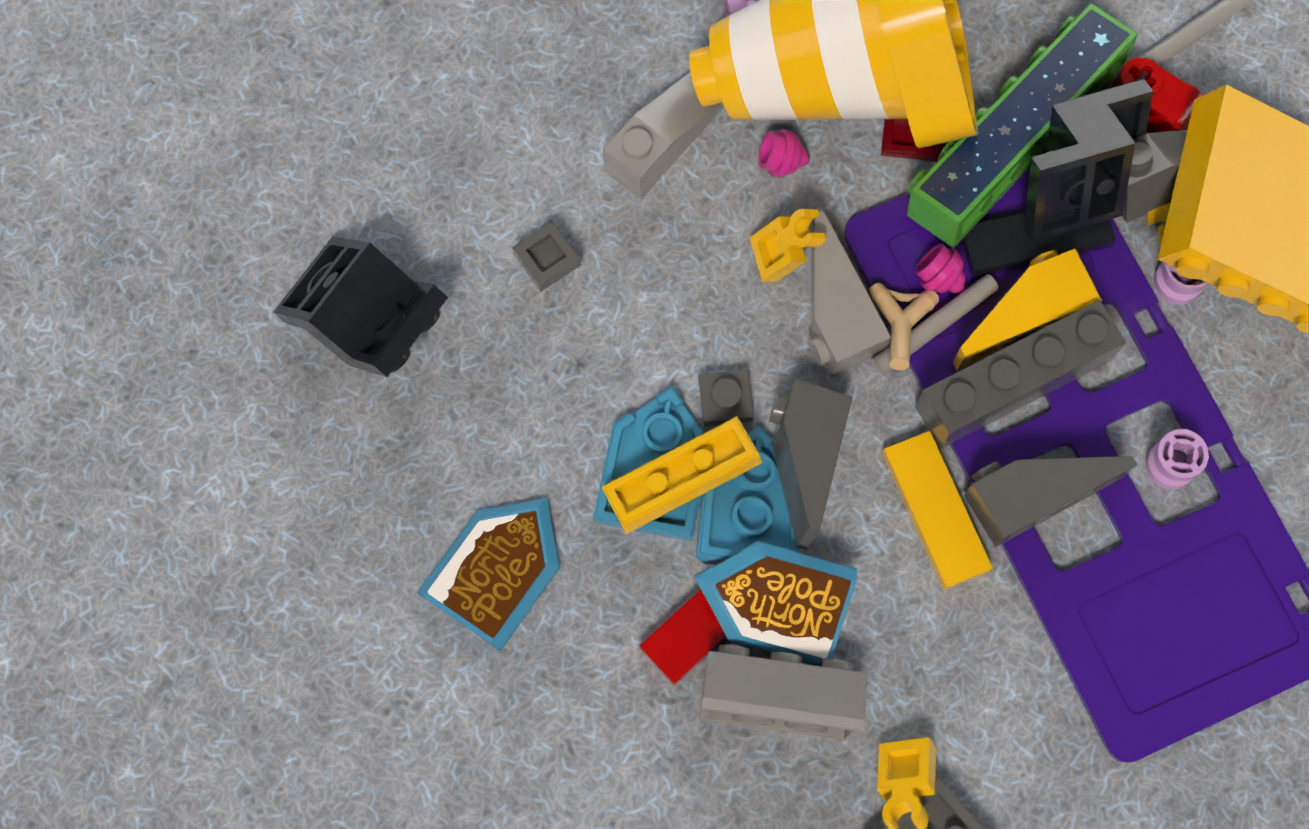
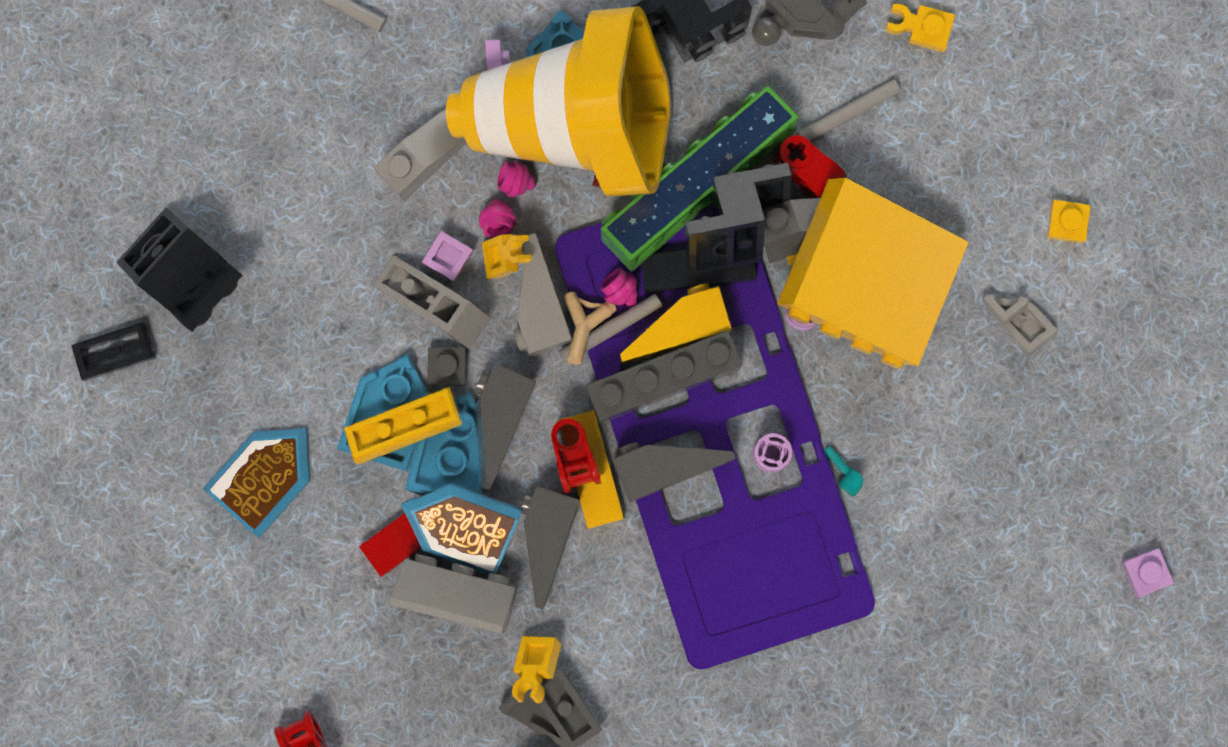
camera: 10 degrees right, 10 degrees up
(284, 443) = (143, 342): none -> black tile
(546, 256) = (325, 242): dark grey plate -> none
(699, 314) = (432, 301): none -> light grey slope
(708, 257) = (447, 256): none -> lavender plate
(766, 203) = (497, 219): none -> dark pink plate
(893, 599) = (546, 531): none -> dark grey slope
(917, 490) = (574, 458): none -> red piece
(1286, 484) = (852, 481): none -> teal hand

